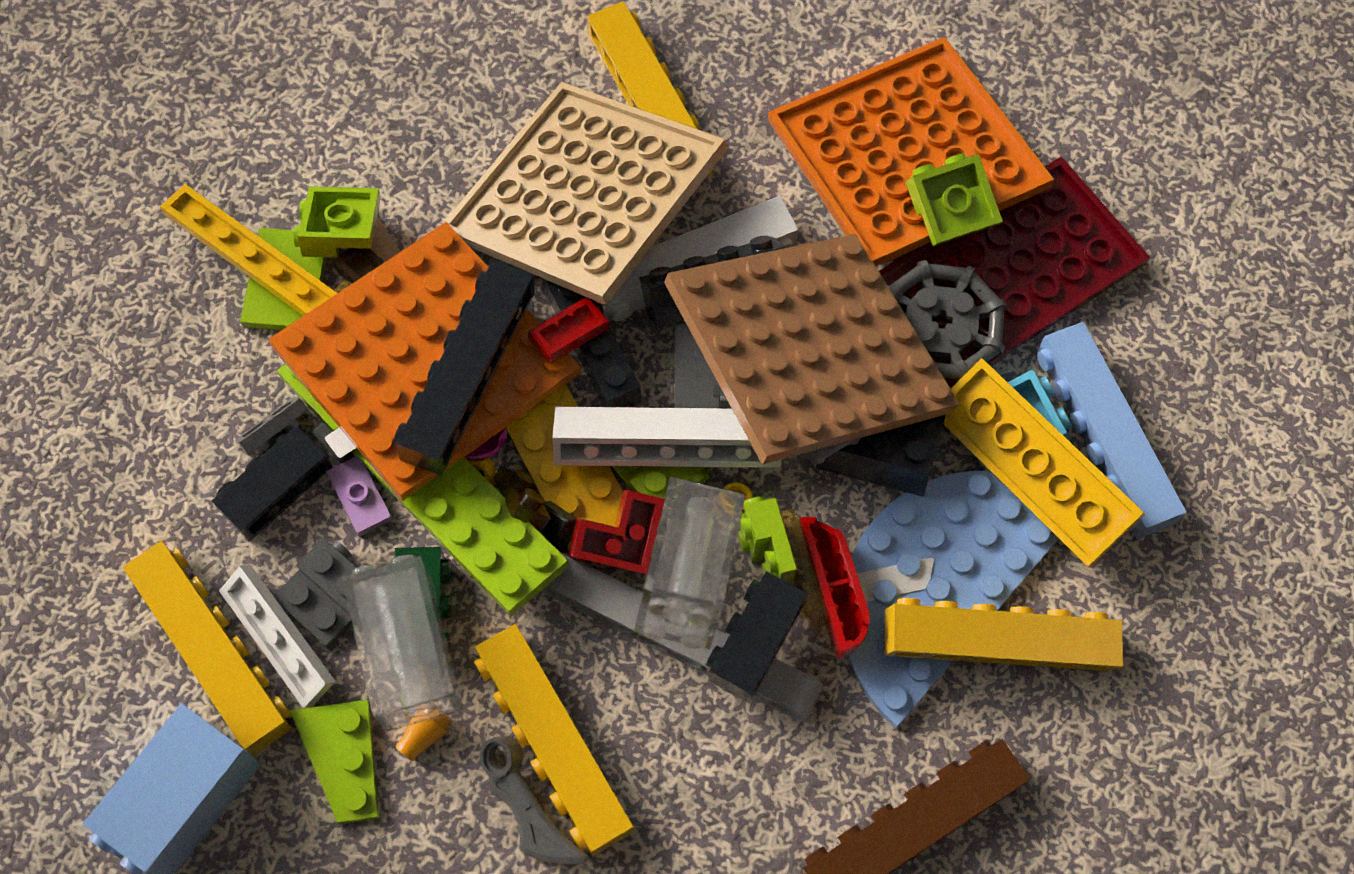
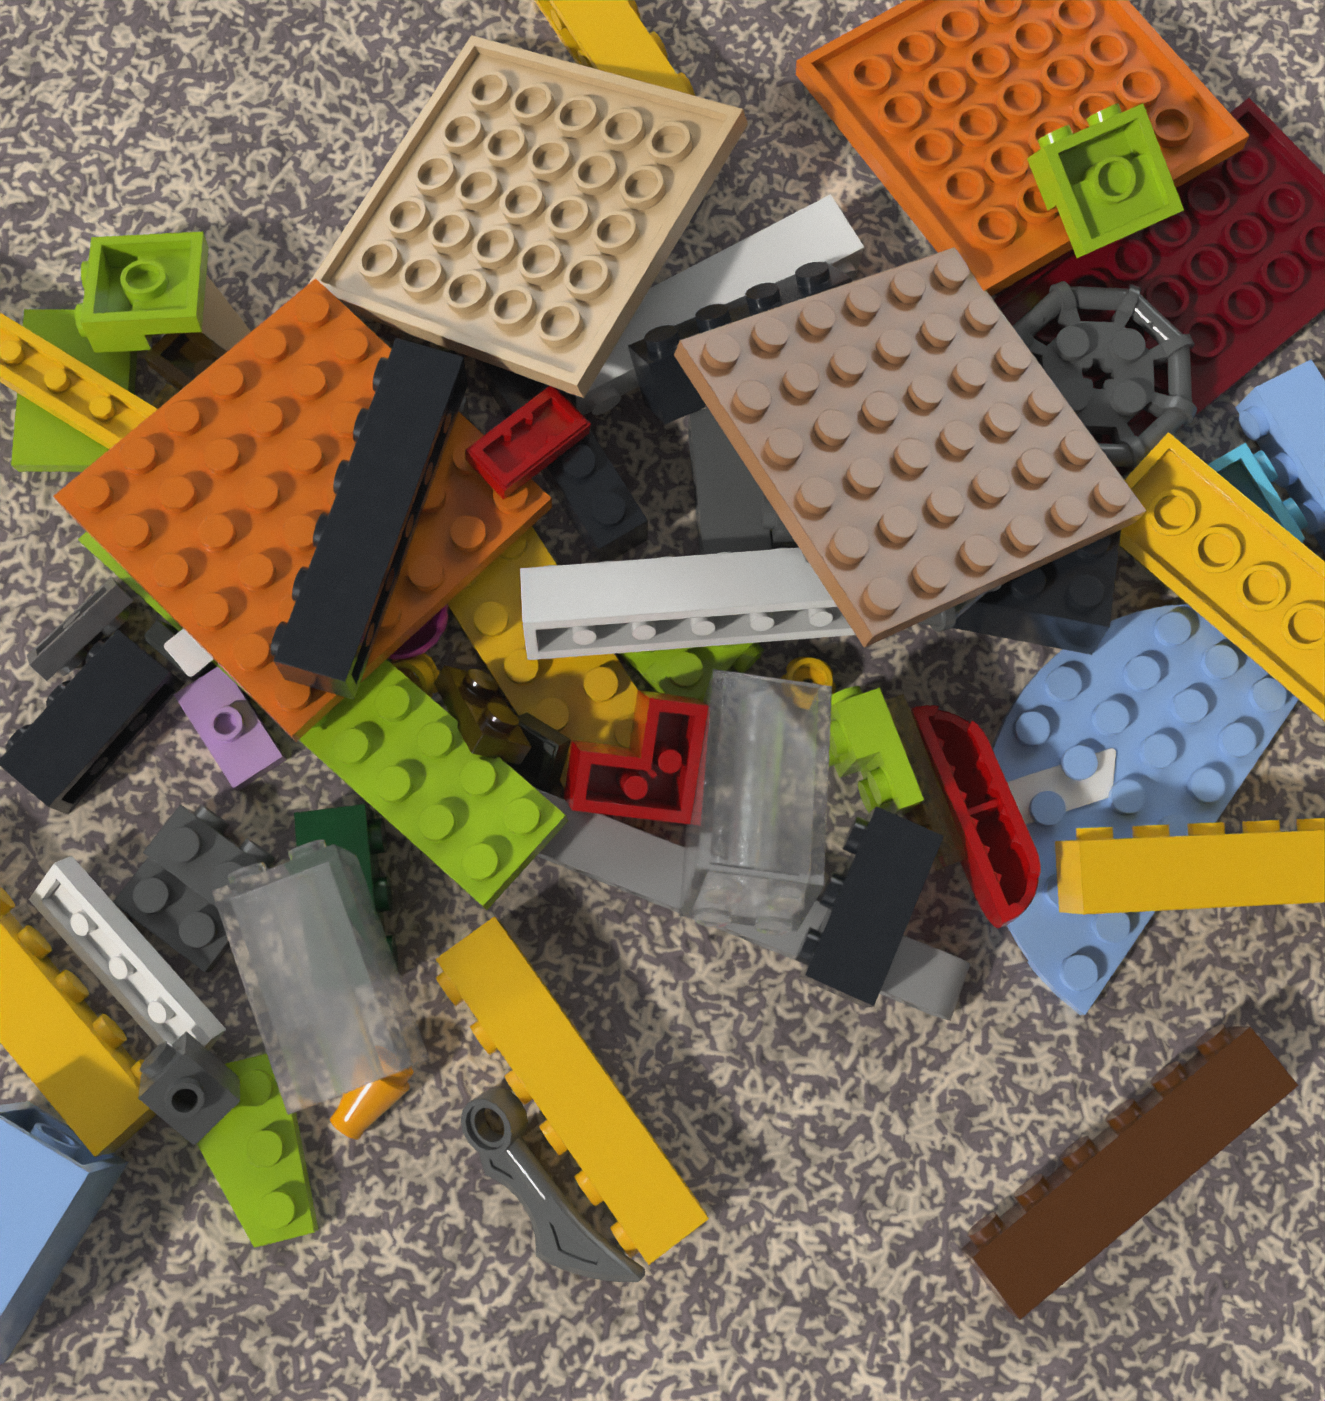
camera: 10 degrees left, 10 degrees up
(308, 709) = (188, 1087): none -> dark grey brick

